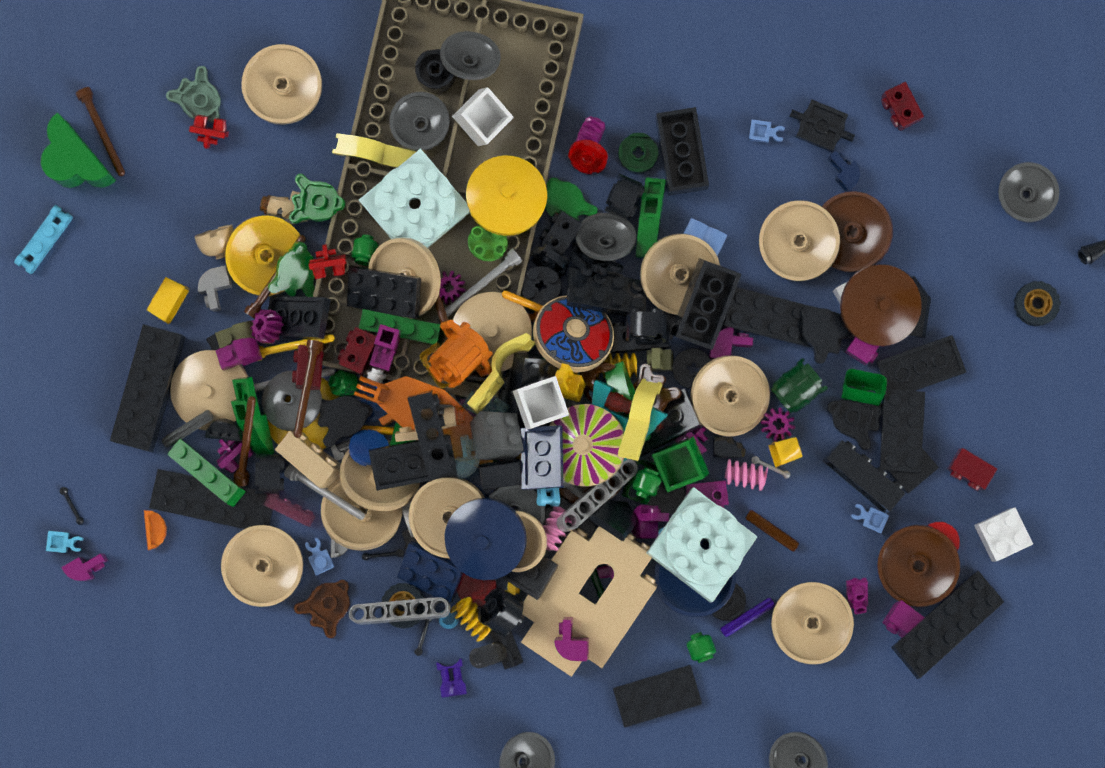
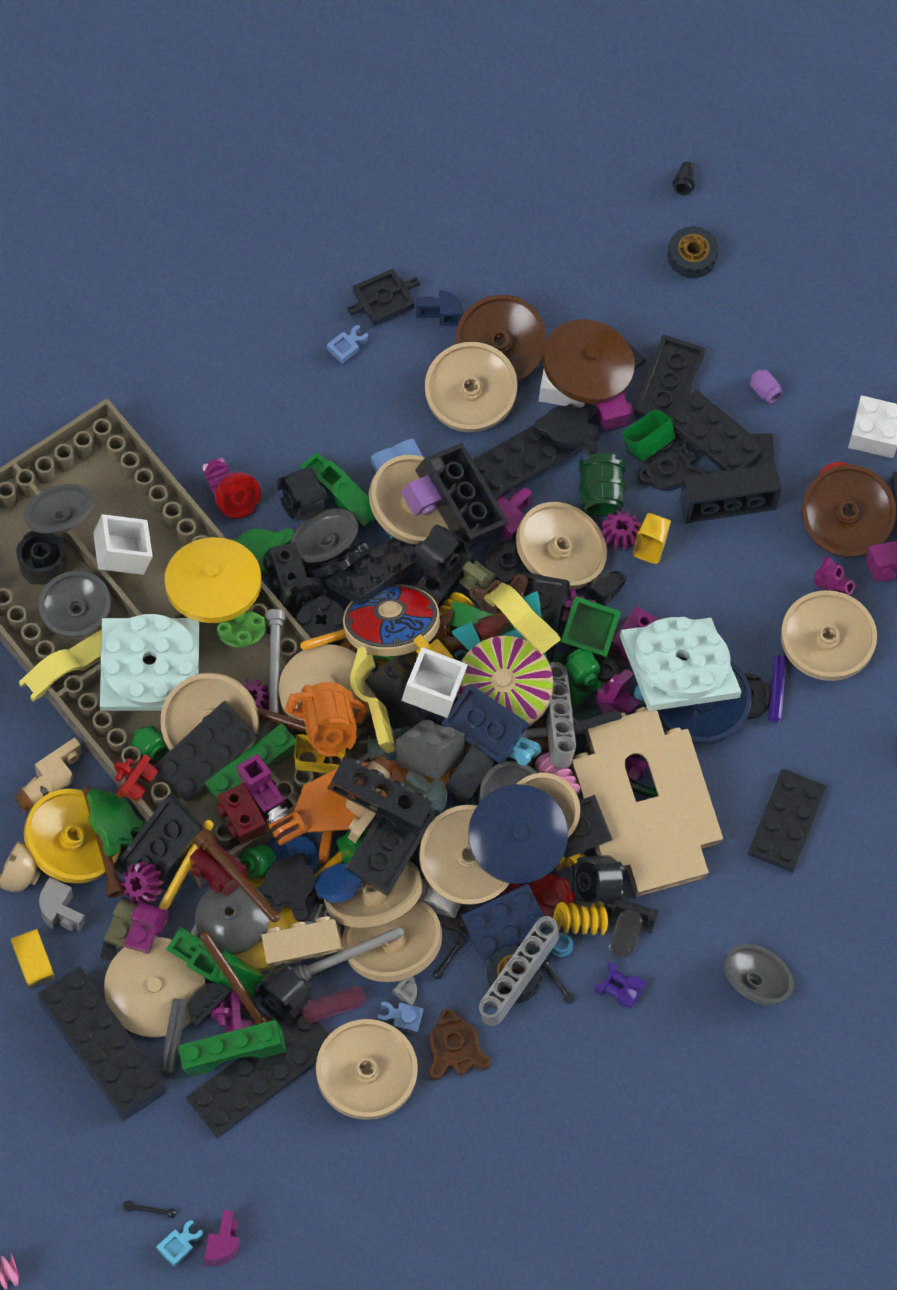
camera: 60 degrees left, 20 degrees down
(155, 529) = (243, 1145): orange plate -> none
(315, 202) = (64, 747): green tile -> none
(571, 647) = (679, 846): magenta brick -> none
(646, 145) = (271, 445): dark green plate -> none
(681, 279) = (421, 496): none -> medium lavender brick
(682, 151) = (304, 417): black brick -> none
(701, 647) = (773, 745): green head -> none
(745, 474) = (643, 588): bright pink piece -> none
(755, 460) = (637, 575): light grey hinge -> none
(772, 530) = (716, 608): reddish brown axle -> none
(873, 519) = (774, 519): medium blue plate -> none
(902, 106) = (424, 223): dark red brick -> none
(971, 435) = (766, 386): none -> medium lavender brick
(971, 469) = (797, 407): dark red brick -> none
(1039, 184) = (591, 174): dark grey dish -> none

